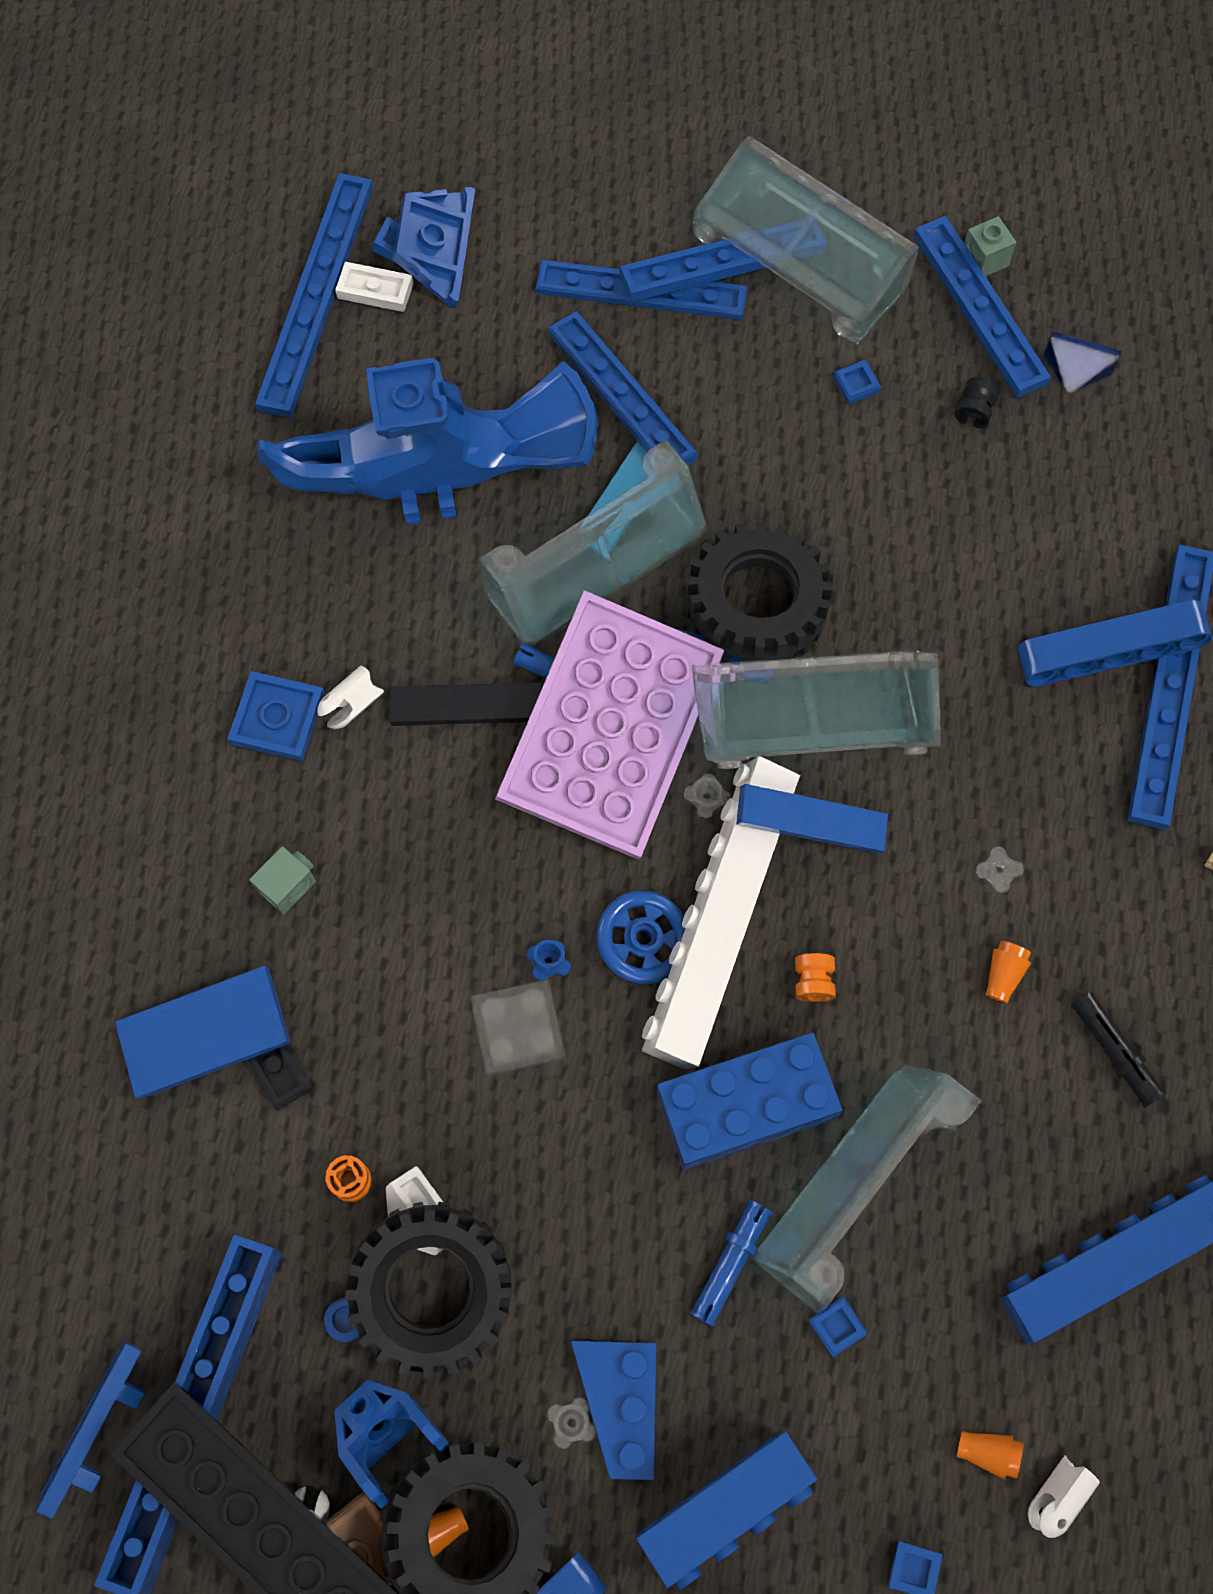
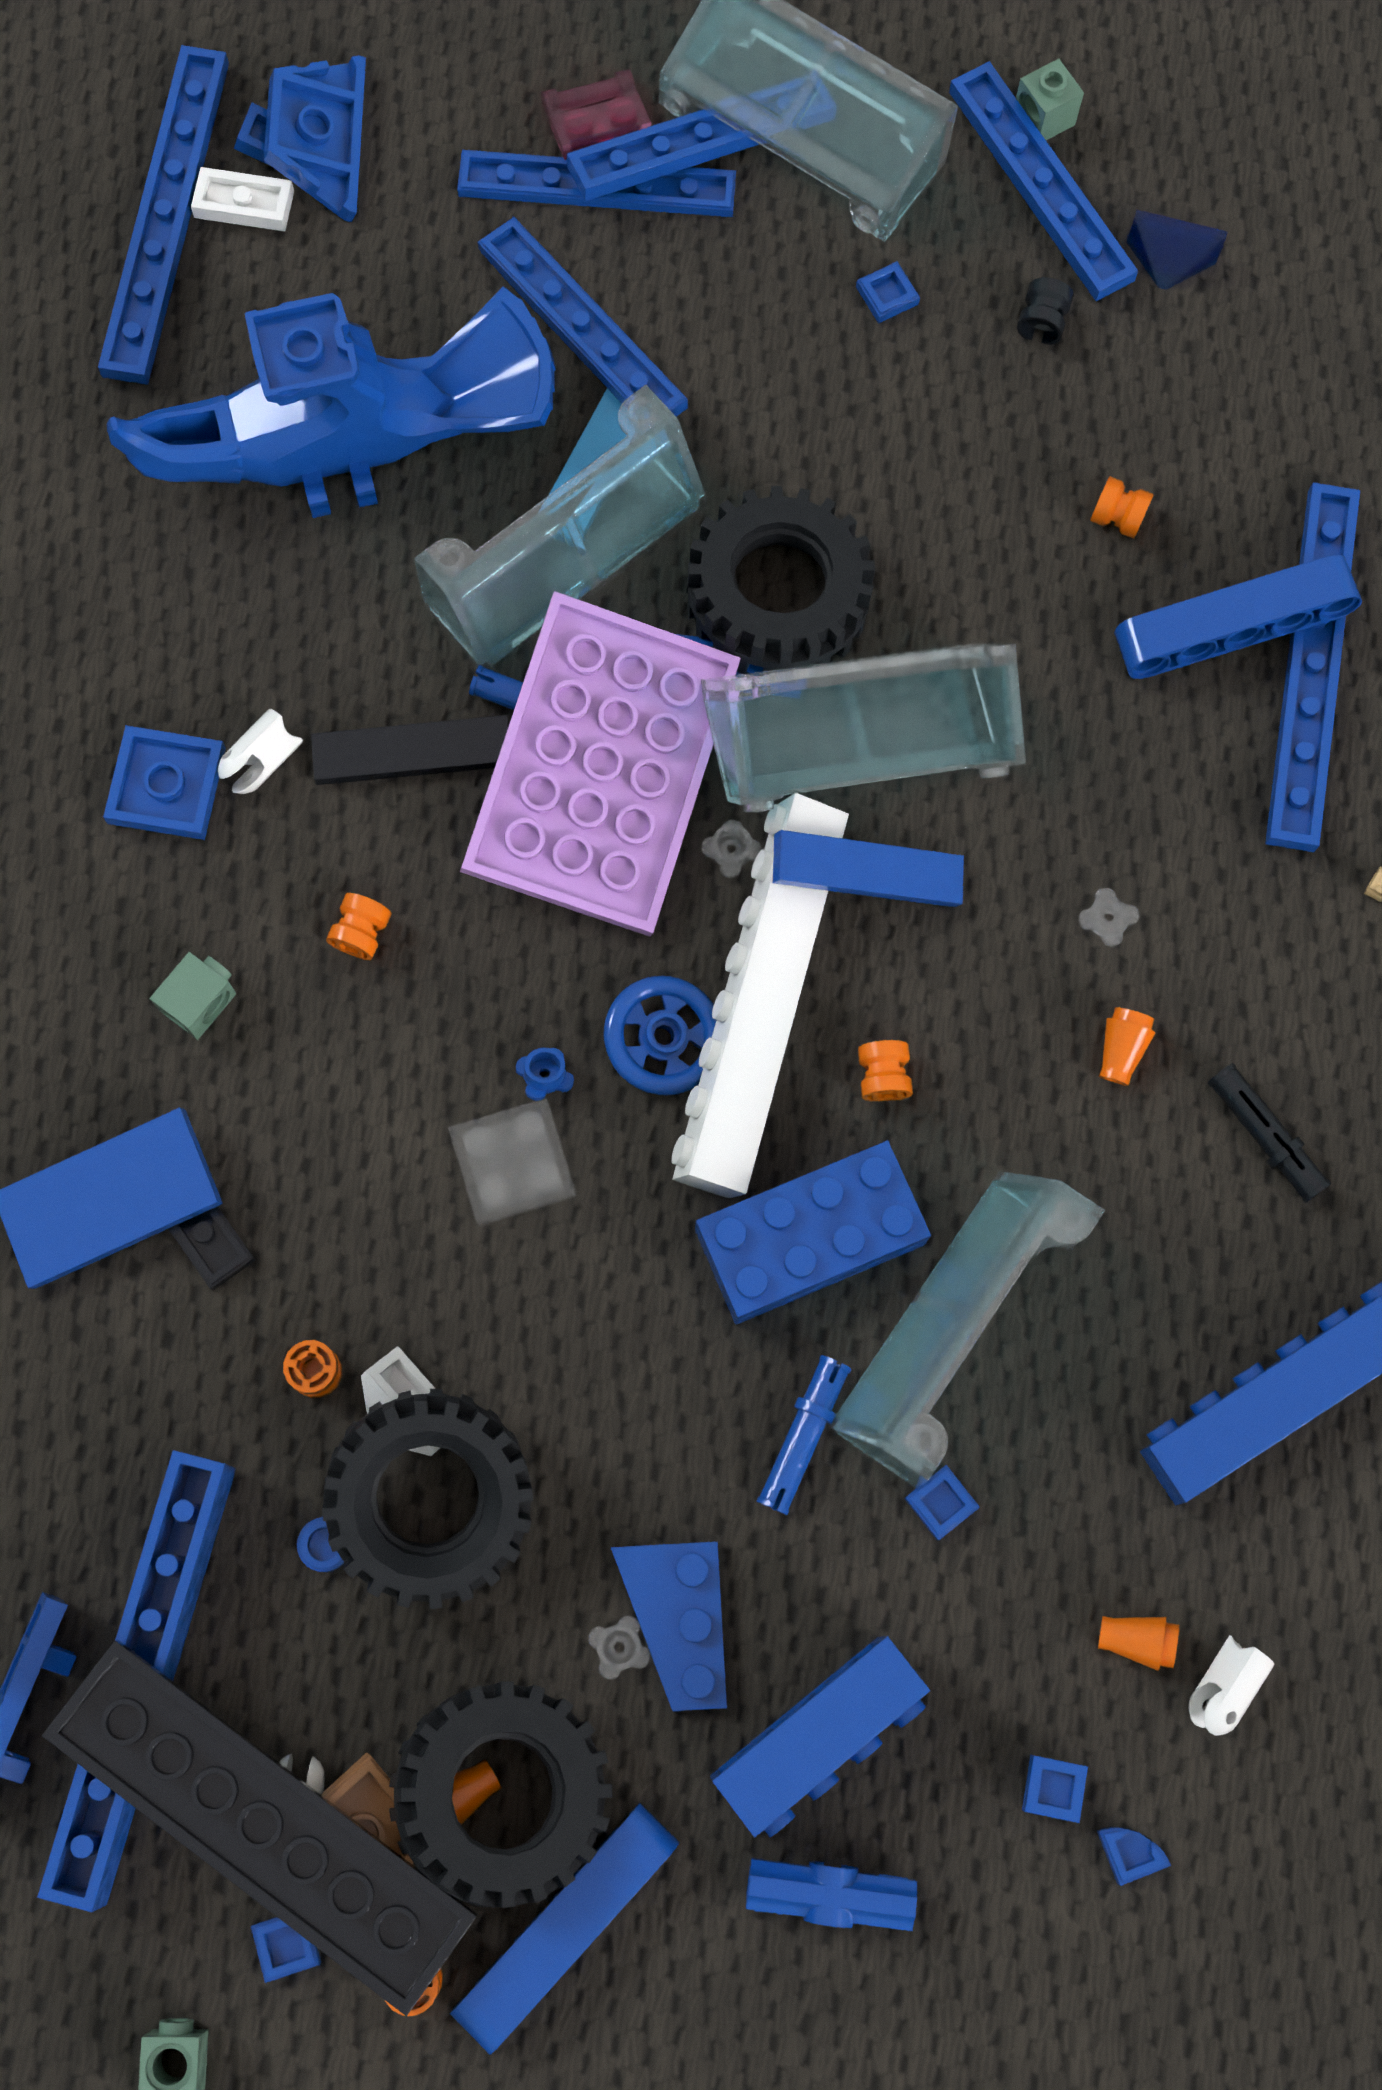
camera: 10 degrees left, 5 degrees up
(363, 1447) = (359, 1699): blue piece -> none
(413, 837) = (357, 930): none -> orange wheel
(646, 244) = (597, 122): none -> clear pink plate
(1029, 555) = (1121, 507): none -> orange wheel

